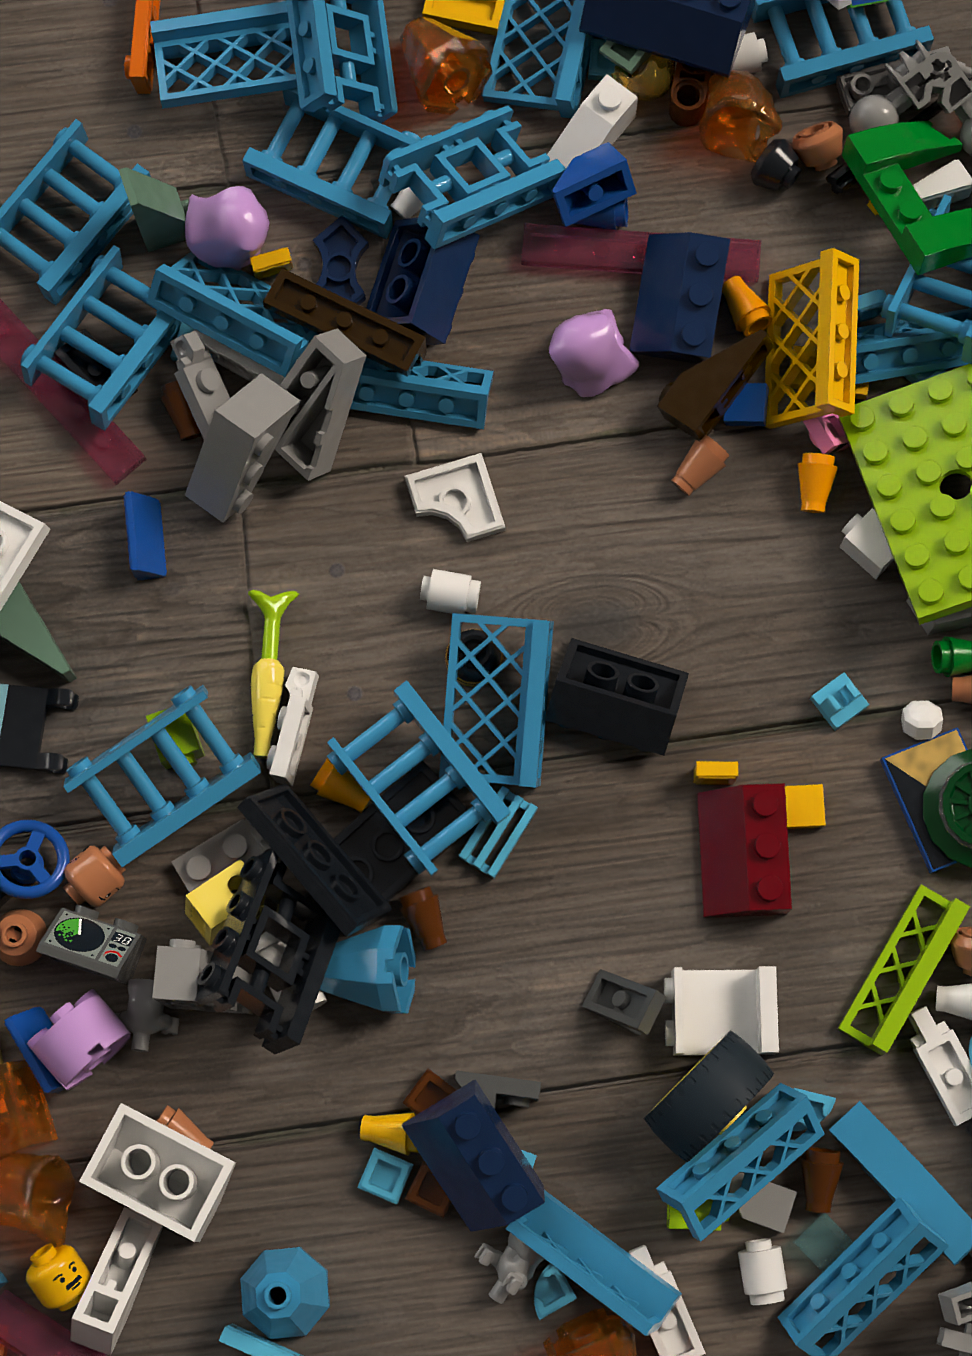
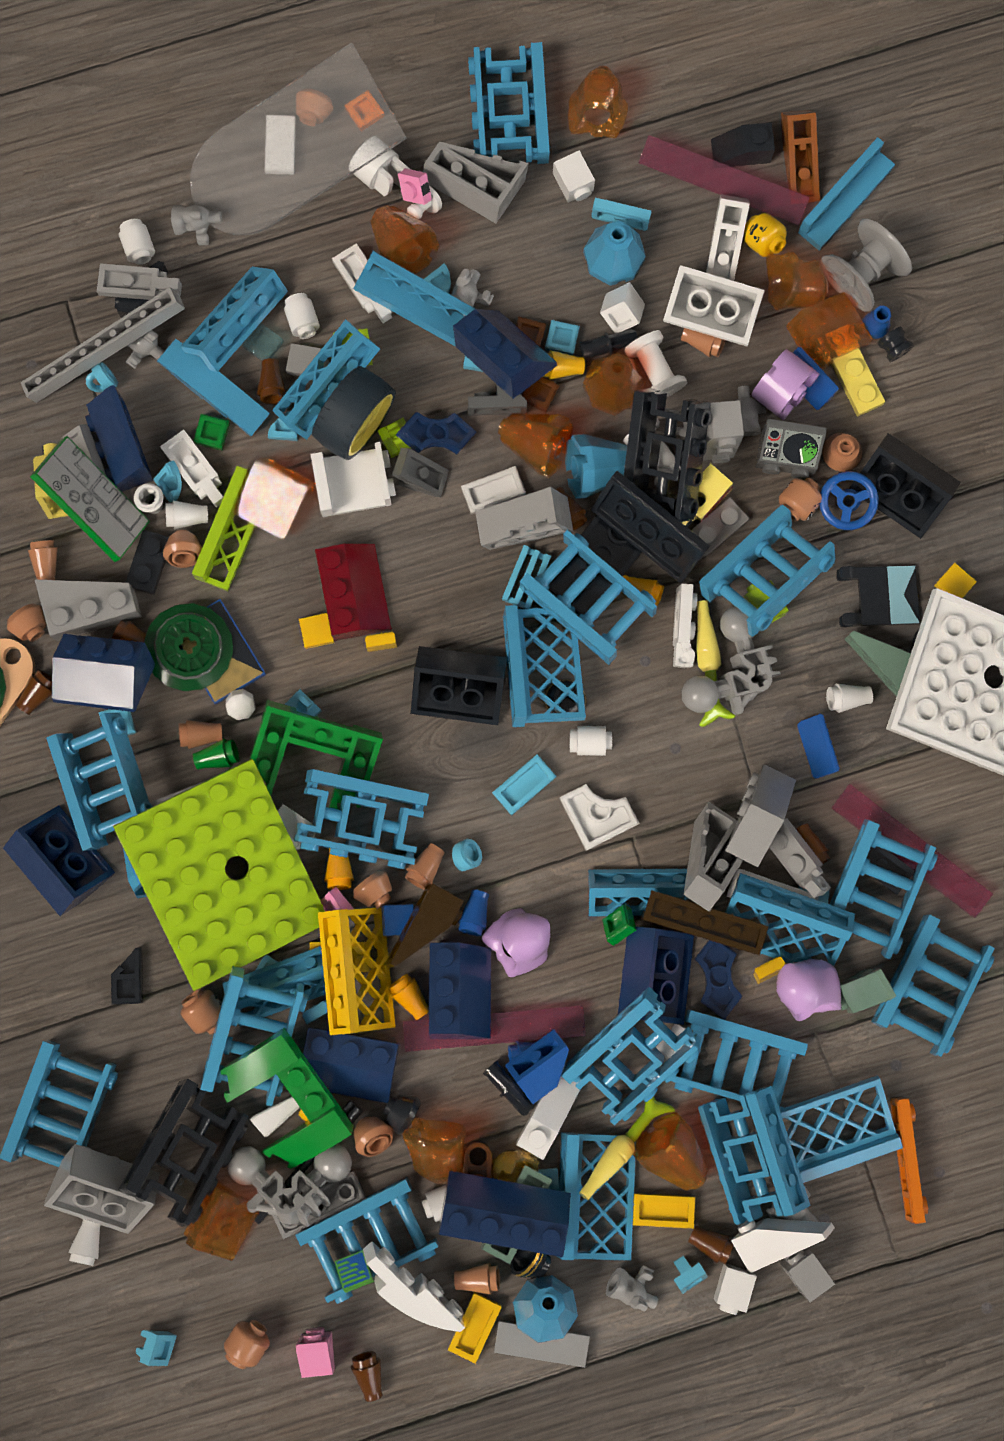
camera: 165 degrees right, 5 degrees up
(90, 594) = (845, 697): none -> white cone
(258, 1102) = (654, 363): none -> white piece
(287, 623) = (702, 693): none -> light grey piece
(289, 1202) = (622, 308): none -> white panel
(320, 1153) = (607, 343): none -> black axle
(341, 1102) = (612, 382): none -> clear orange cone
(451, 1021) = (537, 439): none -> clear orange cone
(456, 347) = (619, 924): none -> green tile
(488, 904) = (524, 519): none -> light grey wedge
(505, 75) = (622, 1148): none -> light yellow piece
(523, 965) = (493, 489): none -> white tile
(549, 553) = (524, 784): none -> medium azure tile
(612, 1058) = (447, 433): none -> dark blue tile
(641, 471) = (466, 855): none -> medium azure tile
(643, 394) = (474, 914): none -> blue cone
(647, 193) = (509, 1088): none -> black axle
(648, 1065) = (390, 440): none -> lime tile
(772, 564) = (365, 796): none -> dark azure fence
(773, 444) = (374, 890): none -> nougat cone
(818, 223) = (352, 1063): none -> dark blue slope
(838, 1005) = (272, 497): none -> clear orange bracket
(869, 670) = (284, 724): none -> green wedge
(916, 1120) = (211, 432): none -> green tile

